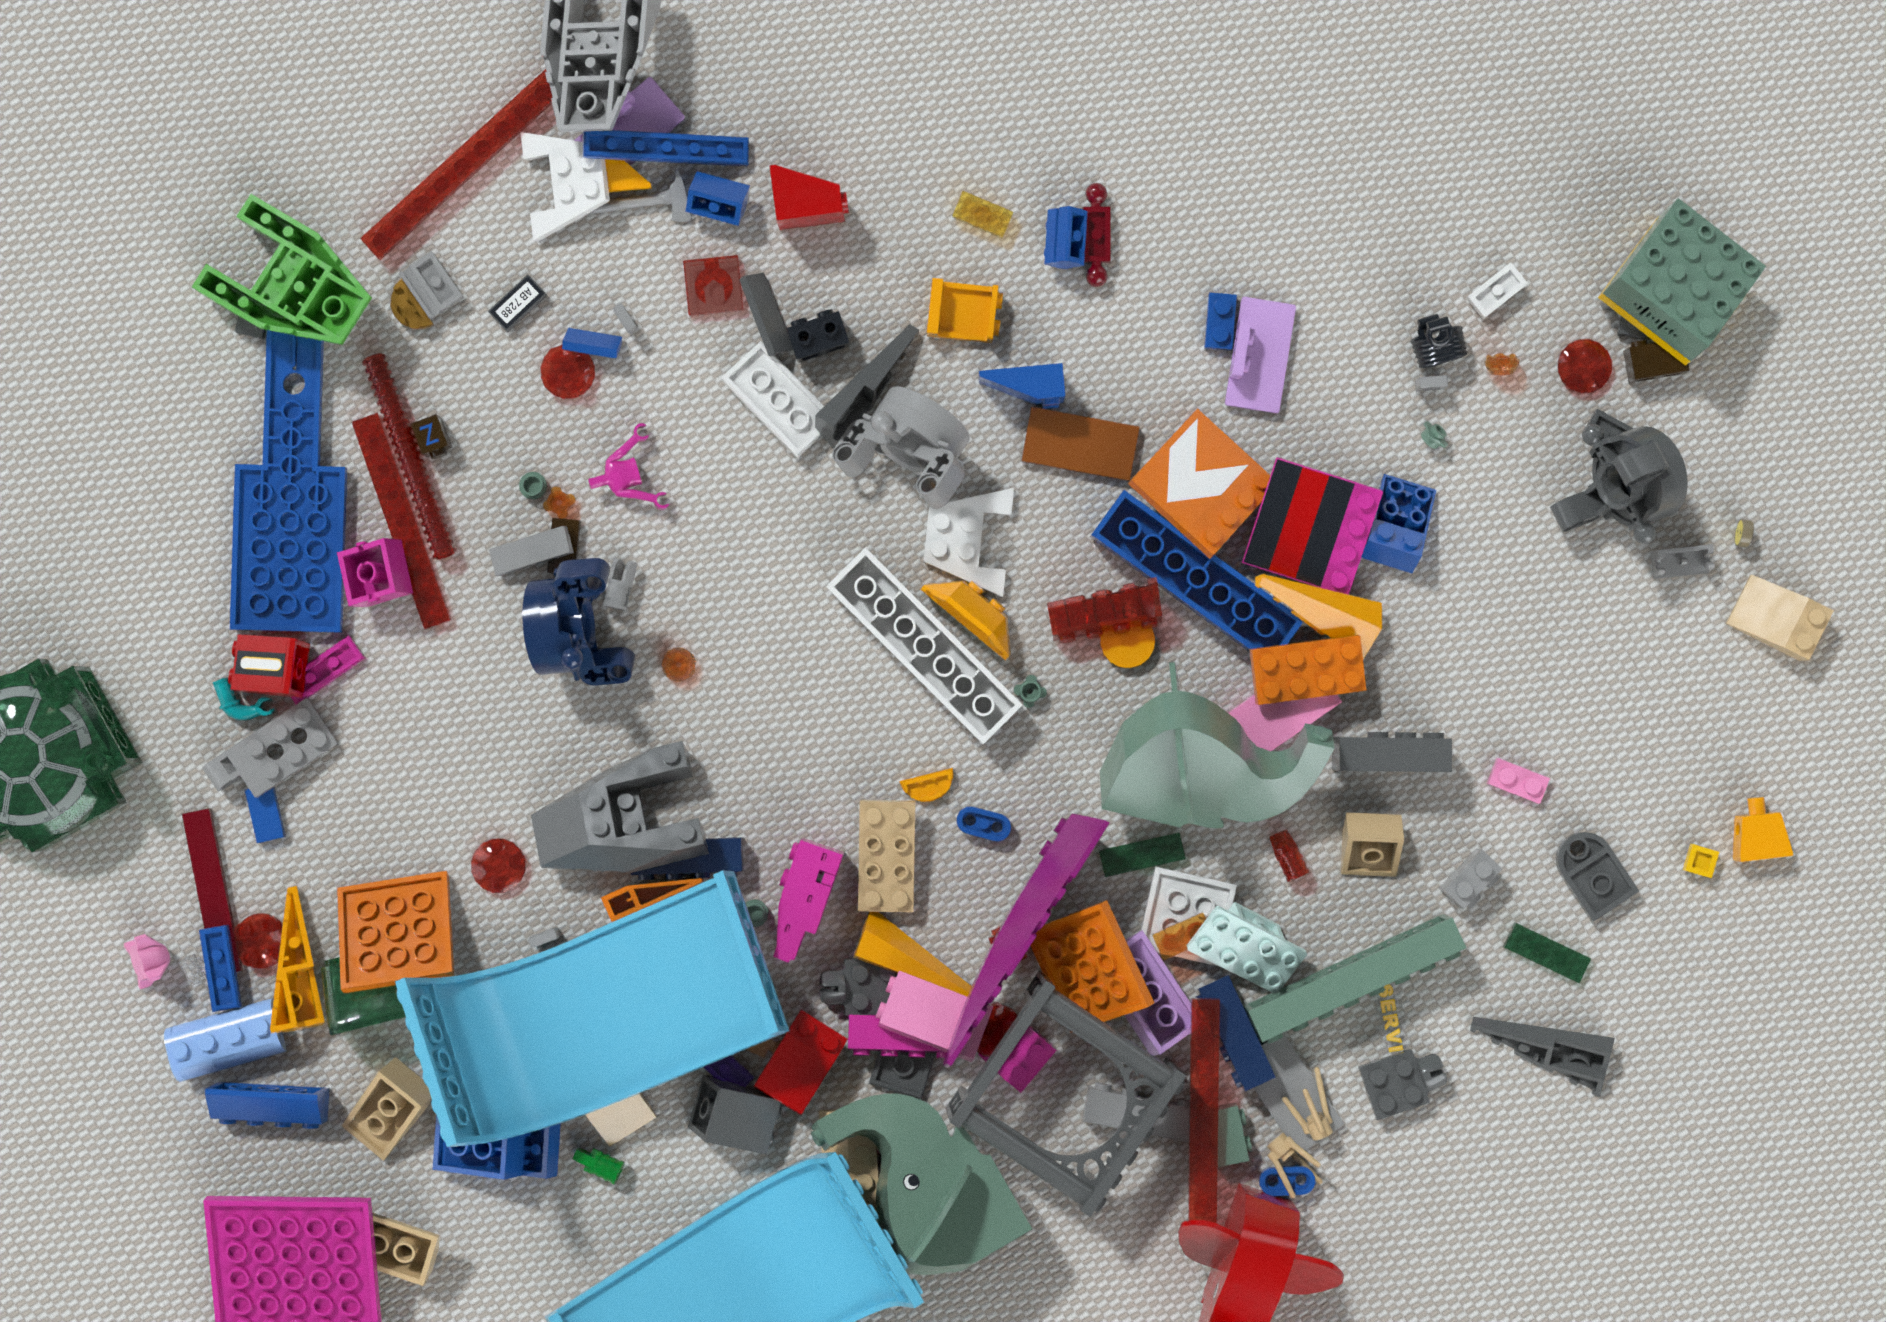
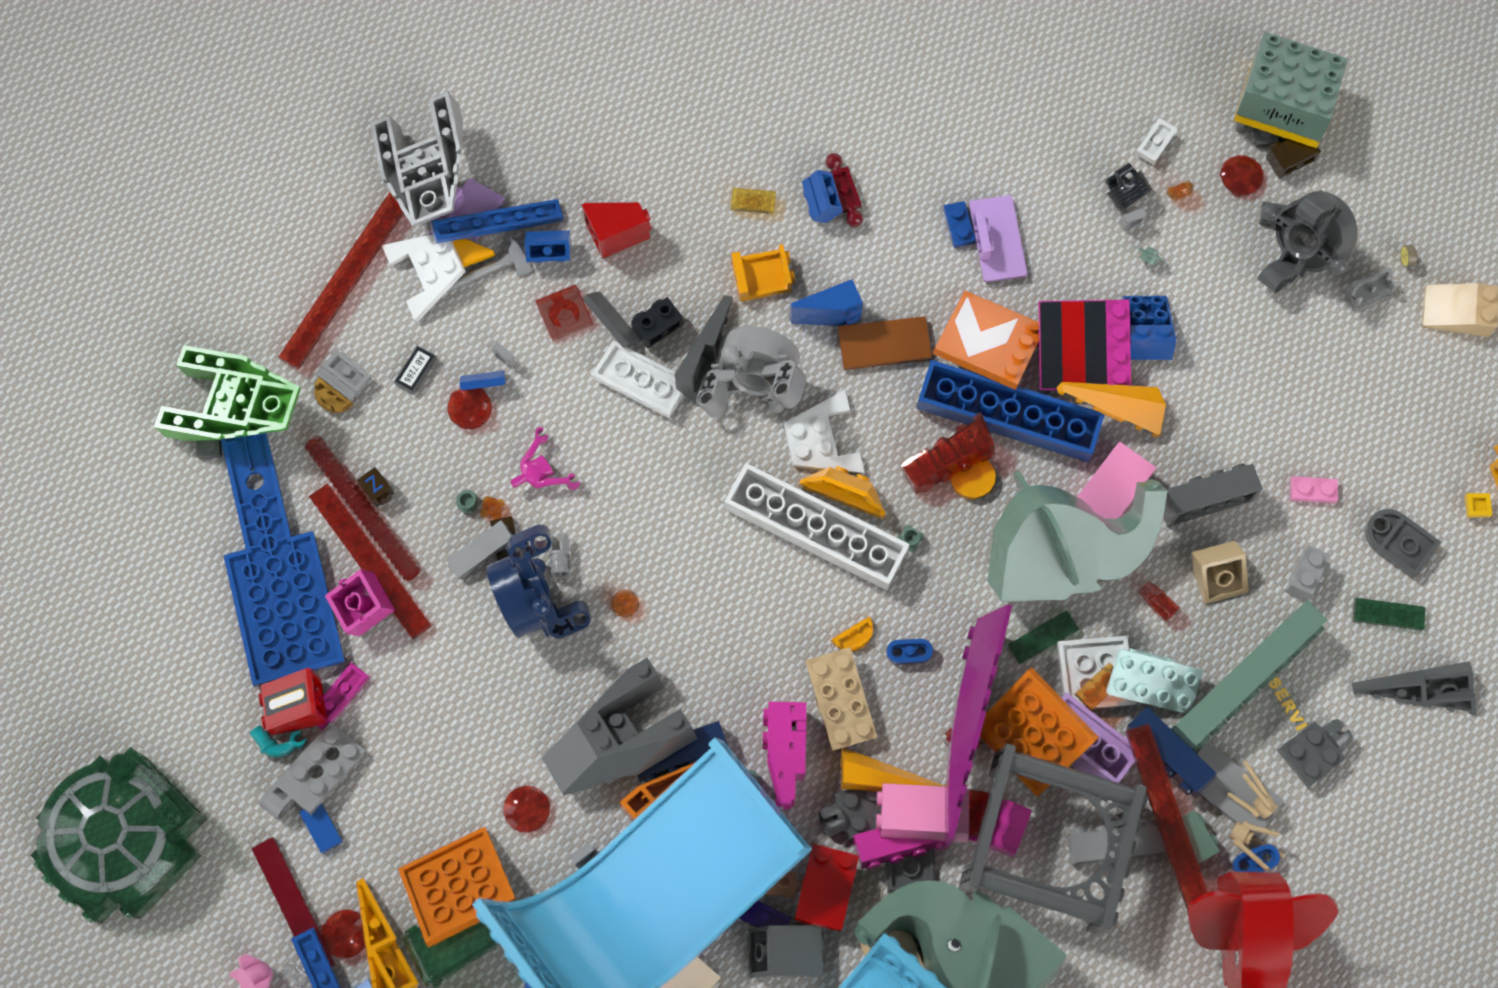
camera: 20 degrees left, 15 degrees down
(1307, 669) = (1121, 449): orange plate -> none

